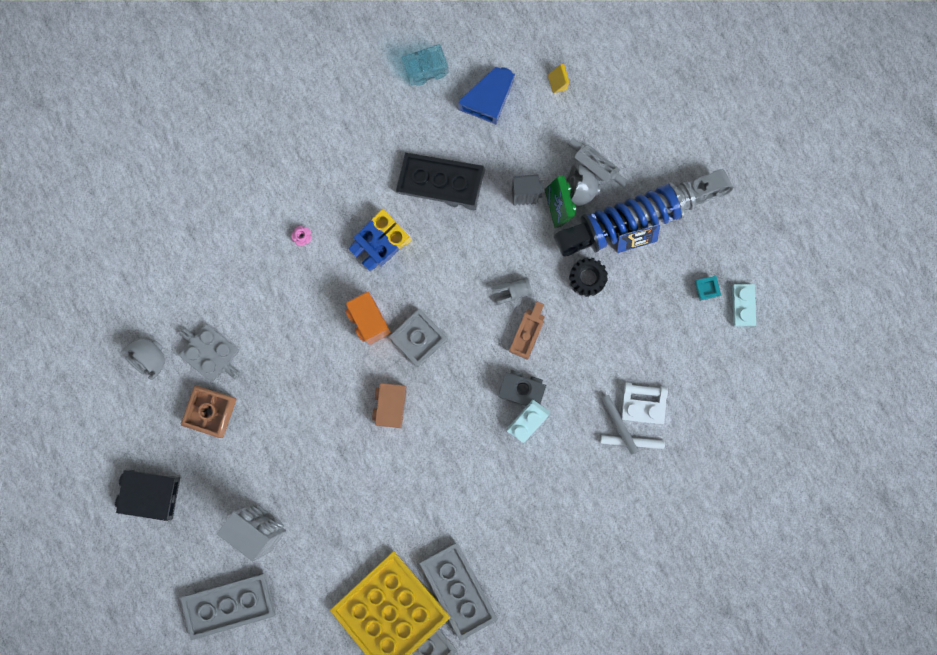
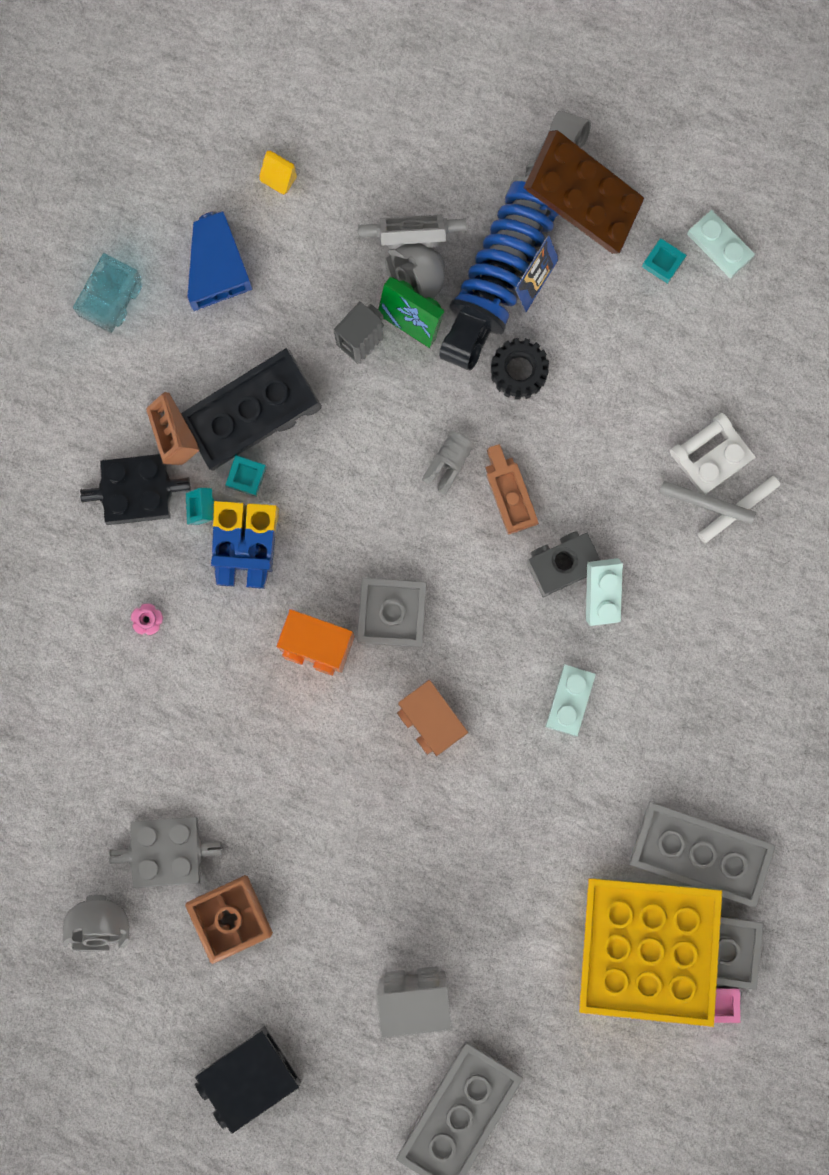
camera: 45 degrees left, 0 degrees up
(353, 169) = (135, 489): none -> black plate
(375, 204) = (199, 506): none -> teal plate
(394, 157) = (175, 441): none -> nougat slope
(410, 210) = (245, 476): none -> teal plate
(464, 458) = (570, 700): none -> light aqua plate
(697, 219) = (584, 192): none -> reddish brown plate

